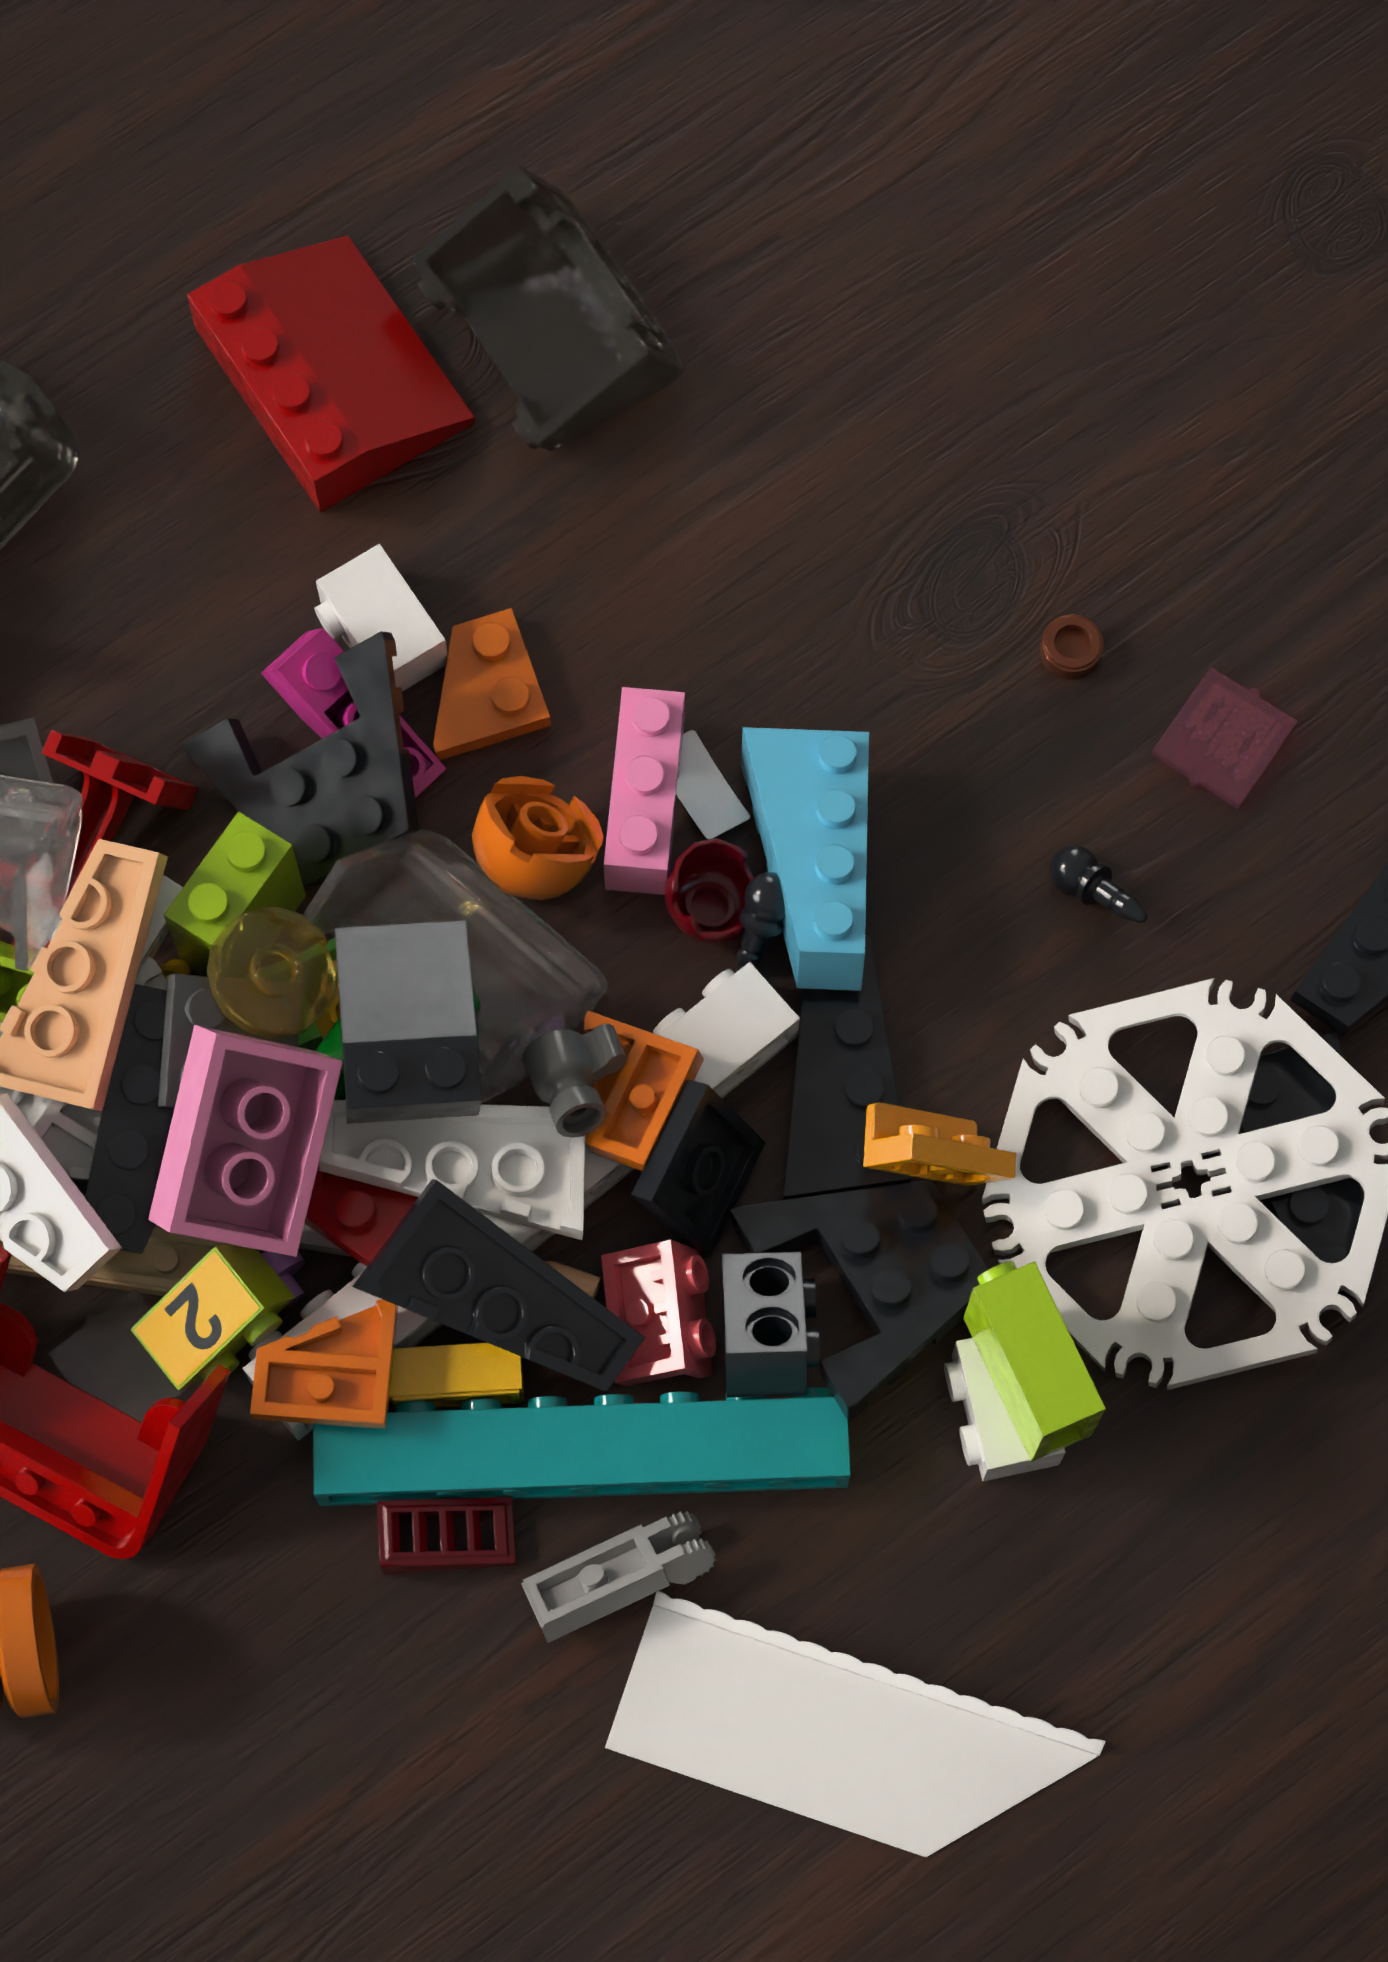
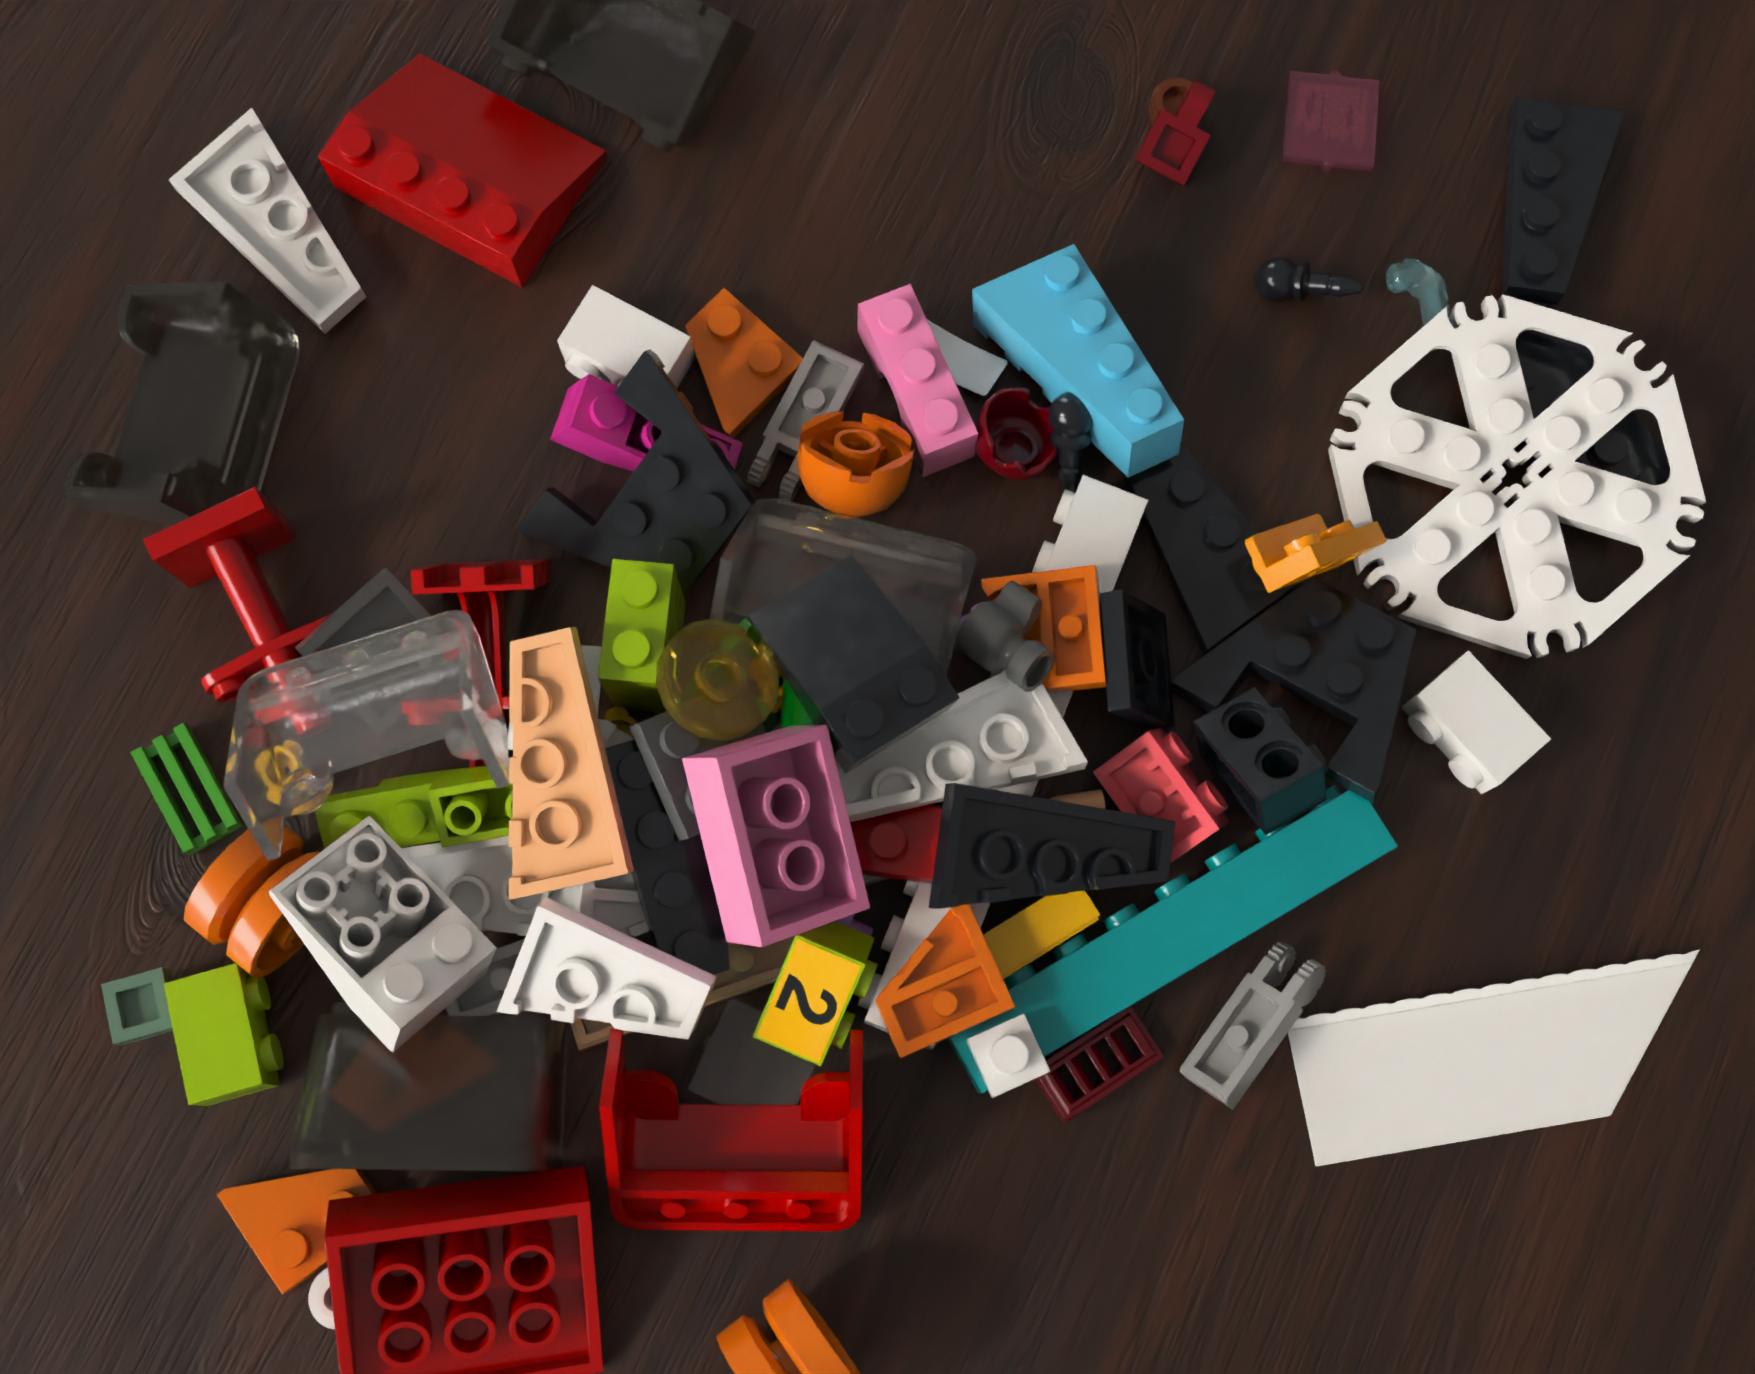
camera: 30 degrees left, 5 degrees up
(113, 323) = (264, 214): none -> white wing
(355, 1469) = (1007, 1055): none -> white plate
(548, 750) = (818, 387): none -> light grey hinge
(1032, 1359) = (1507, 679): lime brick -> none
(1043, 681) = (1175, 140): none -> dark red plate
(1219, 949) = (1421, 283): none -> clear light blue arm

